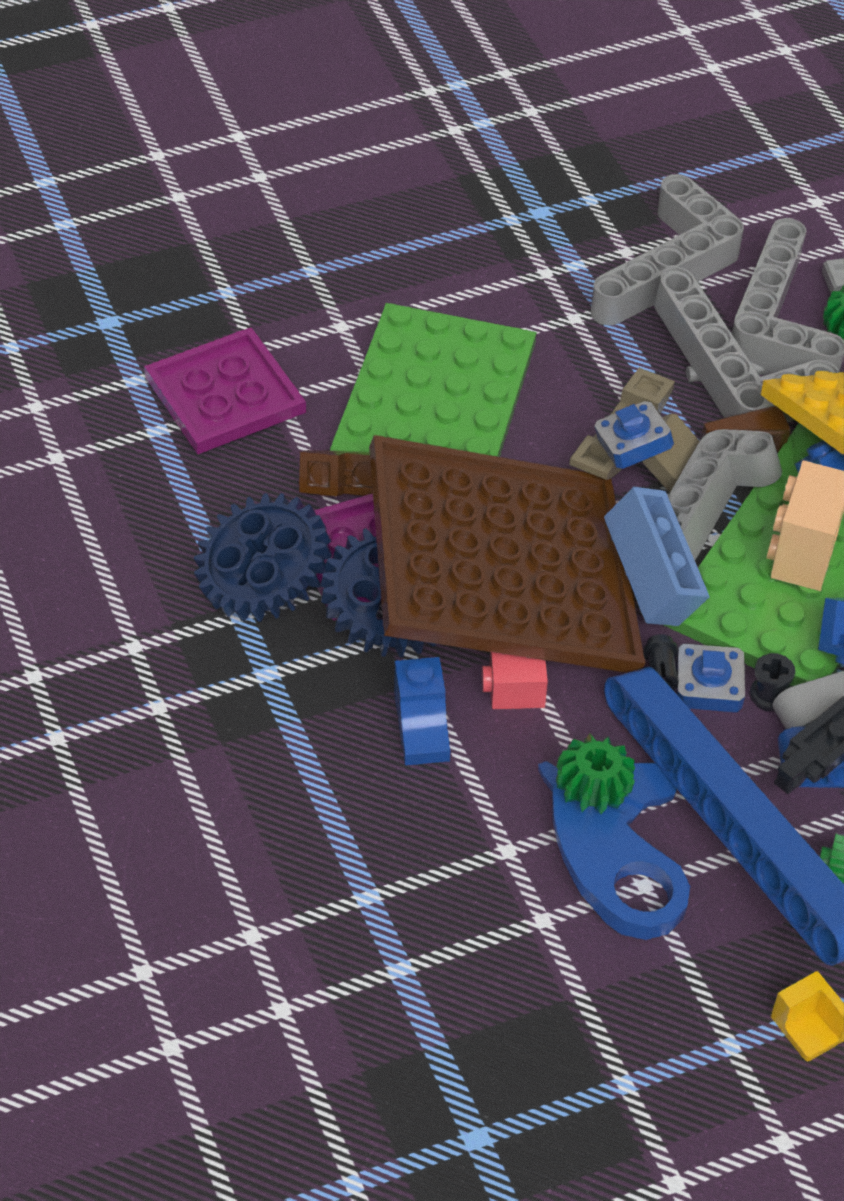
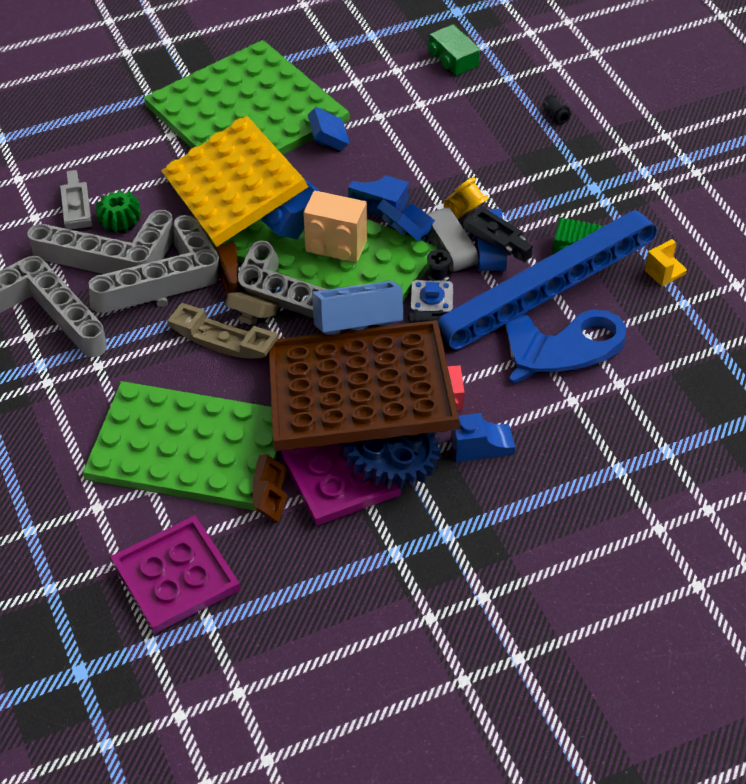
camera: 90 degrees left, 0 degrees up
(258, 545) = (341, 551): dark blue gear -> none
(595, 773) = (531, 341): green gear -> none
(633, 434) = (251, 312): blue piece -> none

